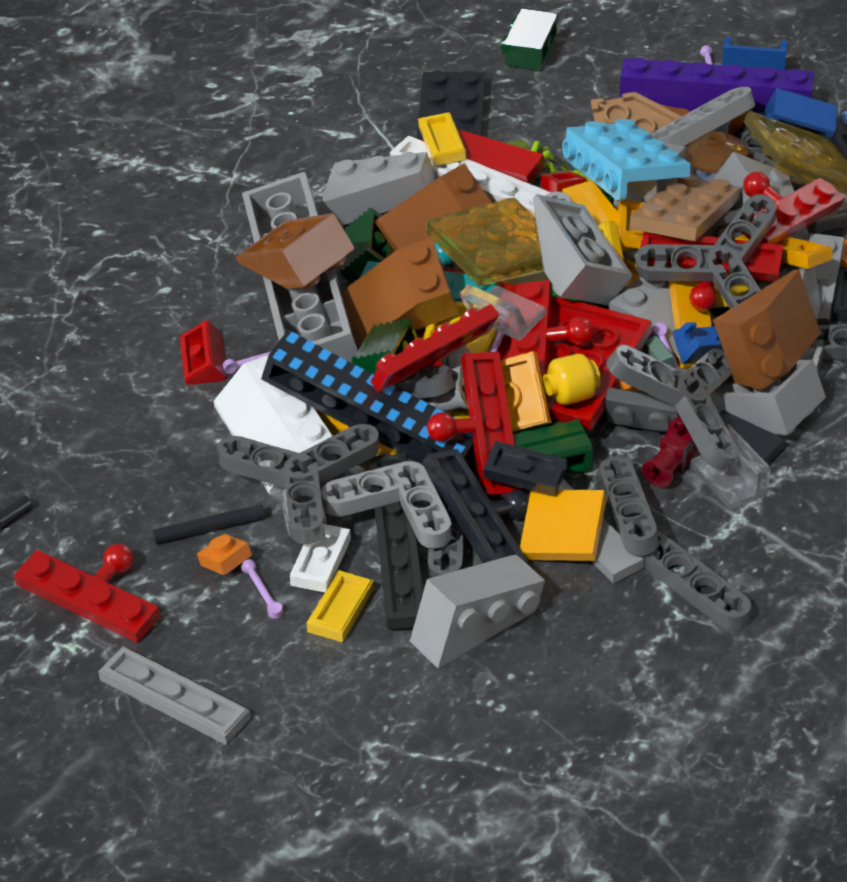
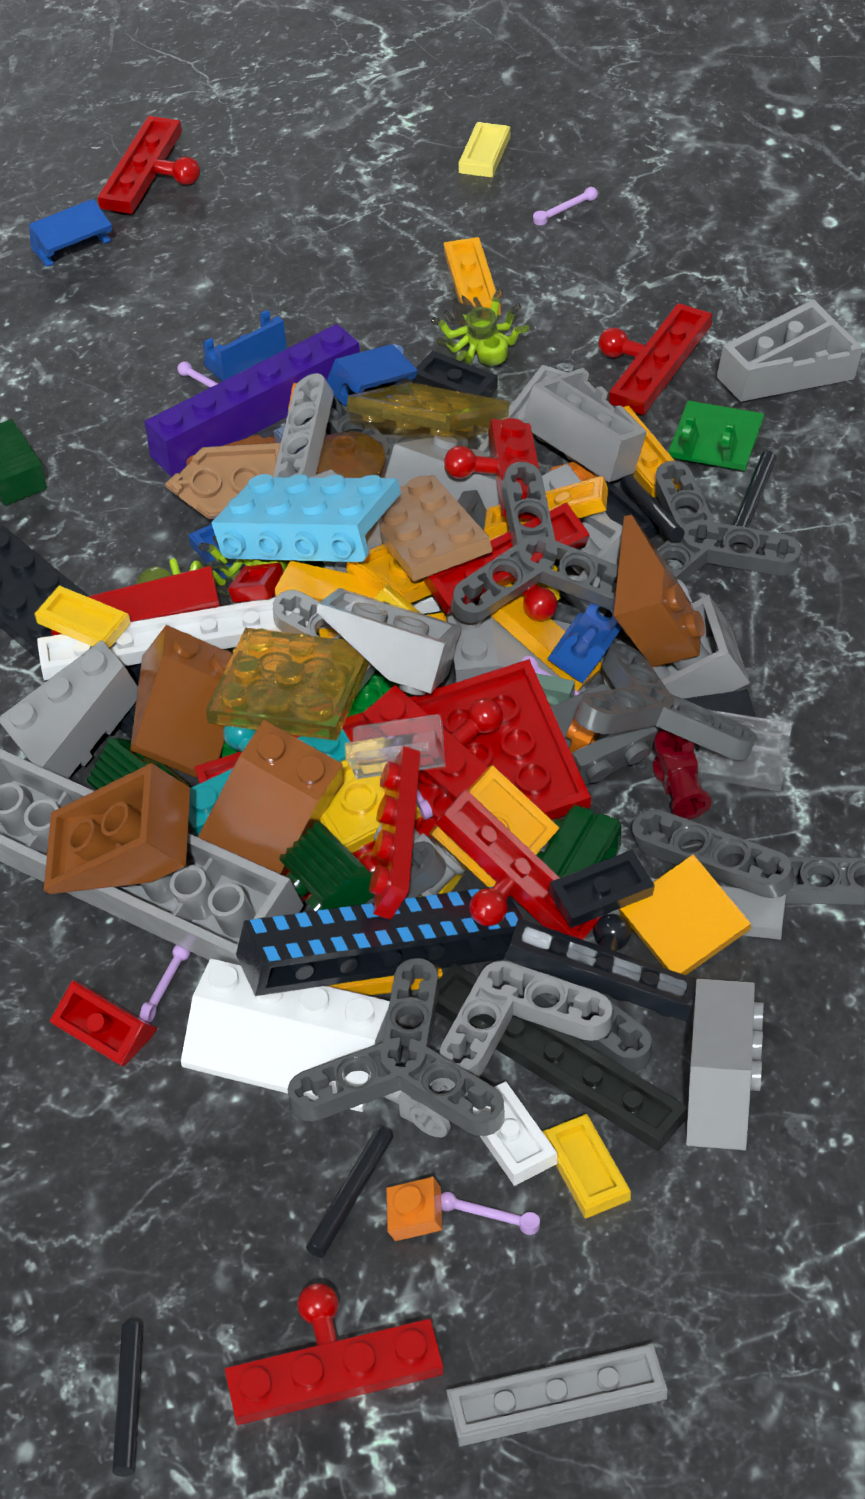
camera: 45 degrees left, 5 degrees up
(571, 379) = (541, 767): yellow head -> none

